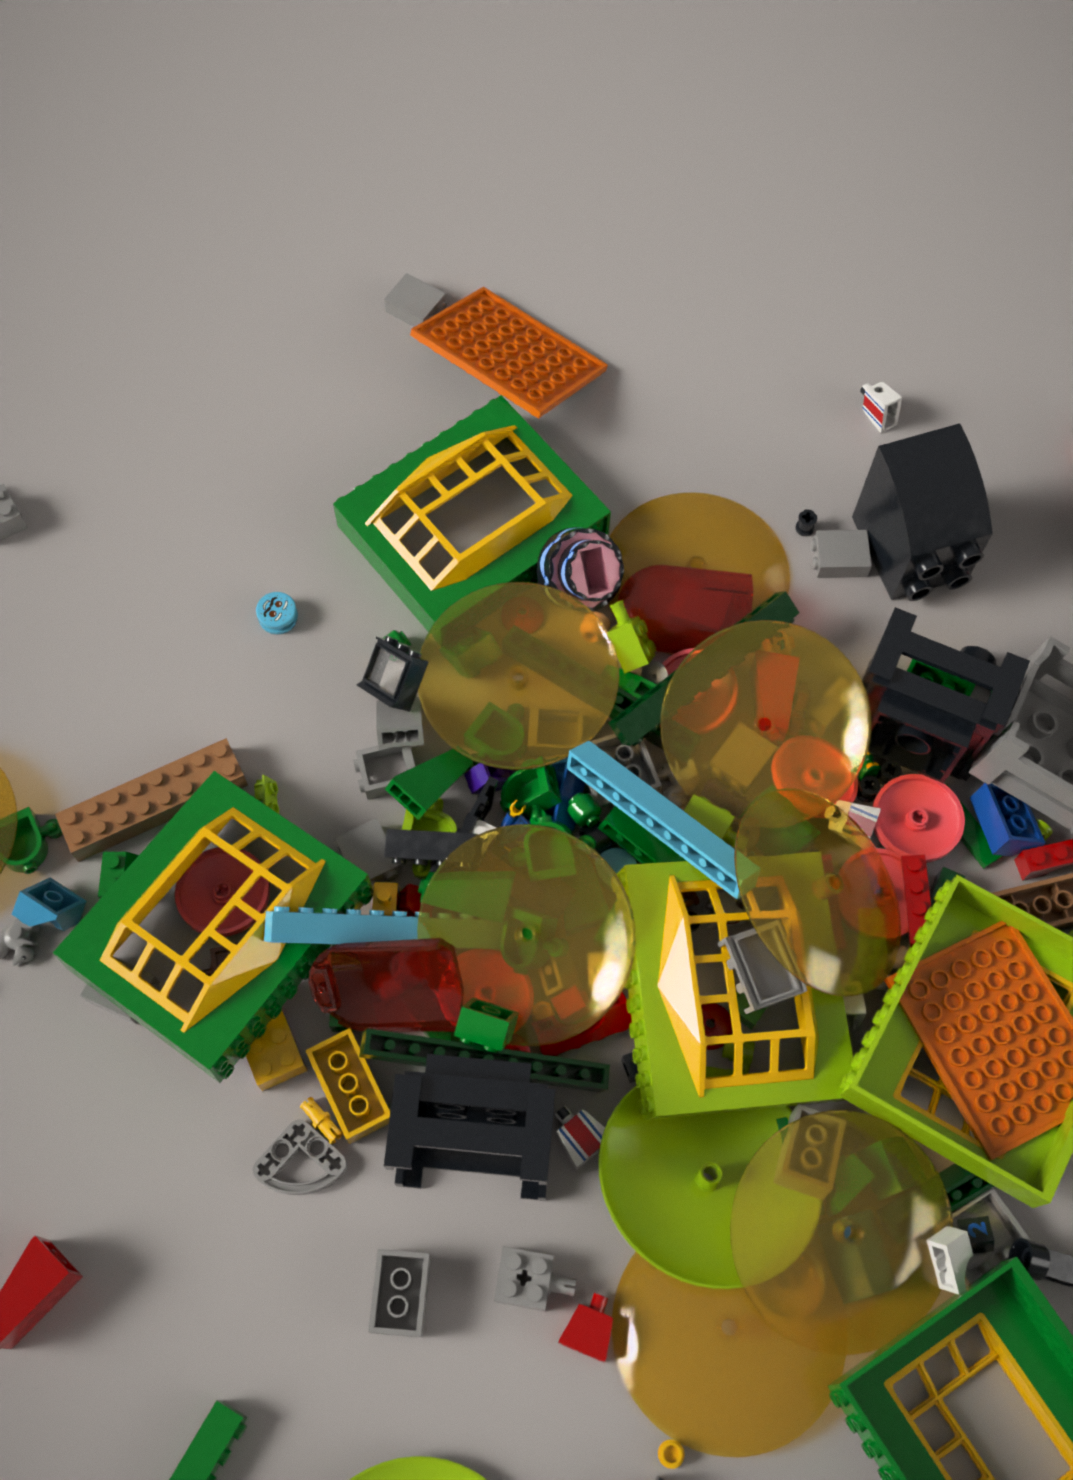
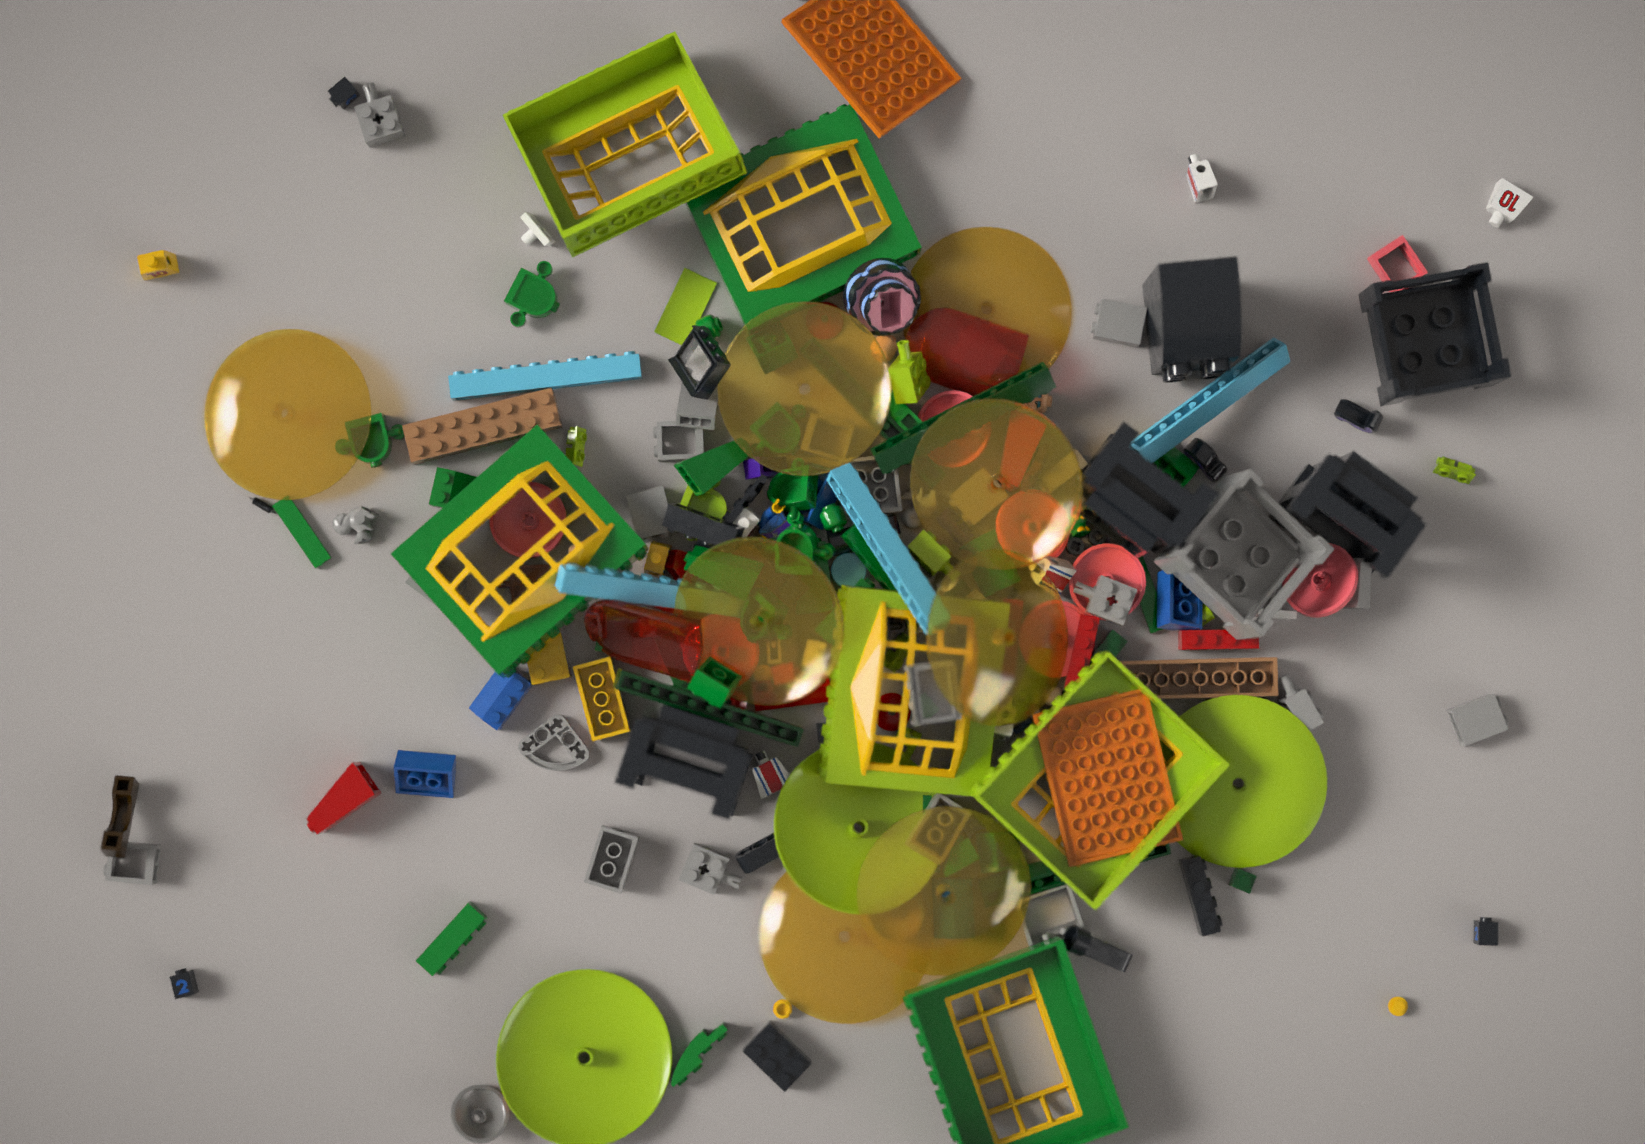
camera: 10 degrees right, 20 degrees up
(49, 903) = (389, 503): dark azure slope -> none
(136, 1236) = (425, 774): none -> blue slope
(183, 588) = (536, 231): none -> white tile
(189, 651) = (532, 295): none -> green piece
(222, 1114) = (500, 699): none -> blue slope
(237, 726) = (541, 377): none -> medium azure brick
(252, 443) = (606, 104): none -> lime panel
(277, 613) = (612, 273): medium azure head -> none
(321, 1120) = (576, 719): yellow pin -> none
(366, 621) = (685, 306): none -> lime sticker
(589, 1329) = (744, 914): red torso -> none
(590, 1241) = (757, 854): none -> black beam
(654, 672) = (923, 409): light grey piece -> none
(703, 943) = (895, 659): none -> lime hinge
(806, 522) = (1091, 286): black bush -> none
(873, 1005) = (1022, 726): none -> medium blue piece
(928, 831) = (1098, 603): none -> light grey brick
(950, 1255) = (1017, 925): white arch -> none
(974, 596) = (1212, 400): none -> medium azure brick
(979, 1233) = (1043, 914): black brick -> none

